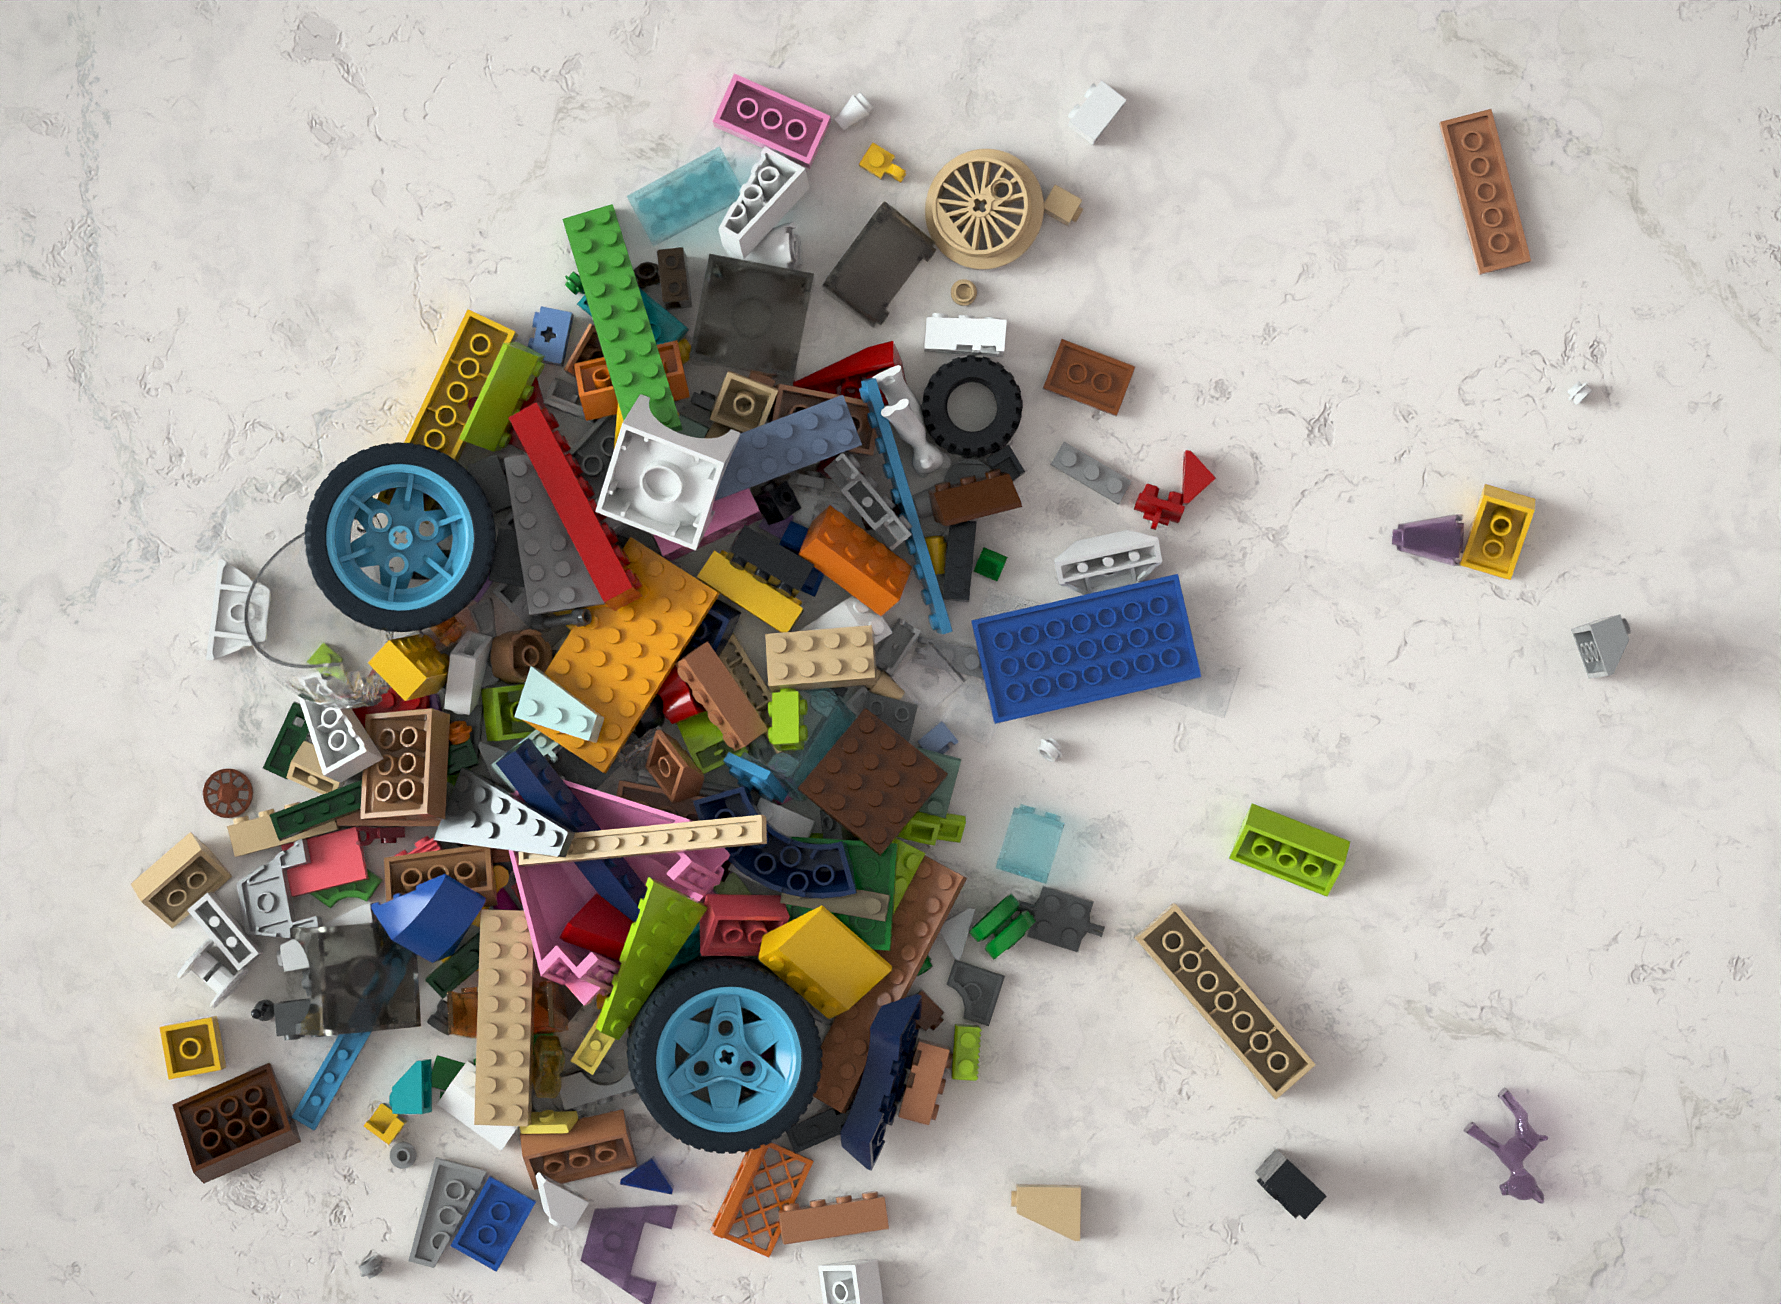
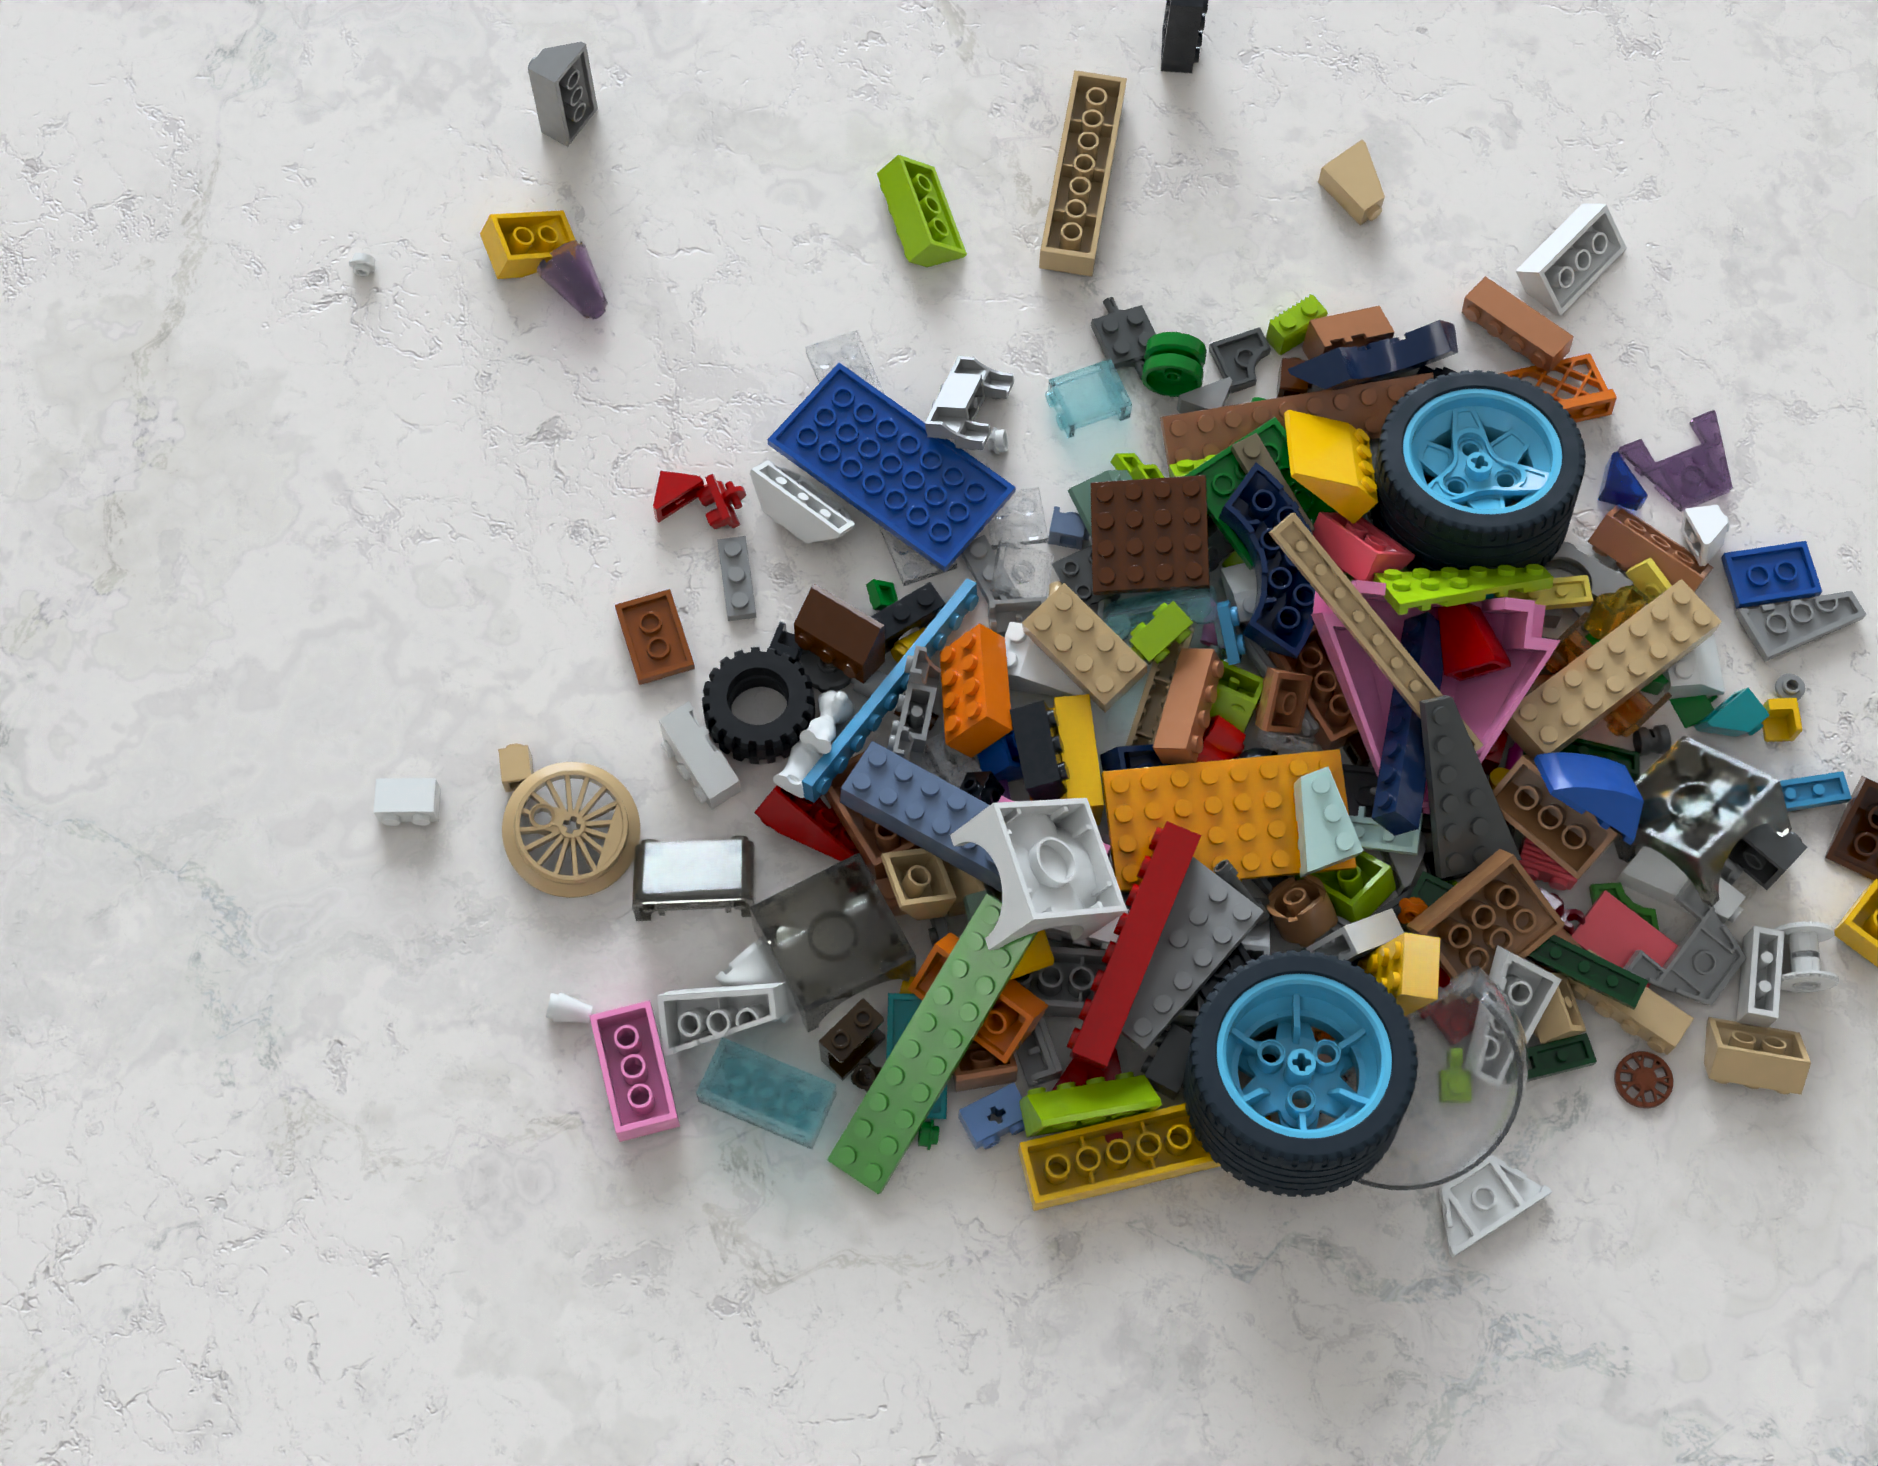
camera: 130 degrees left, 20 degrees down
(261, 1010) = (1792, 892): dark grey hinge -> none
(879, 161) = (599, 953): yellow plate -> none
(963, 292) = (661, 794): tan plate -> none
(1097, 740) = (961, 400): none -> light grey bracket
(1485, 191) = (239, 447): nougat plate -> none

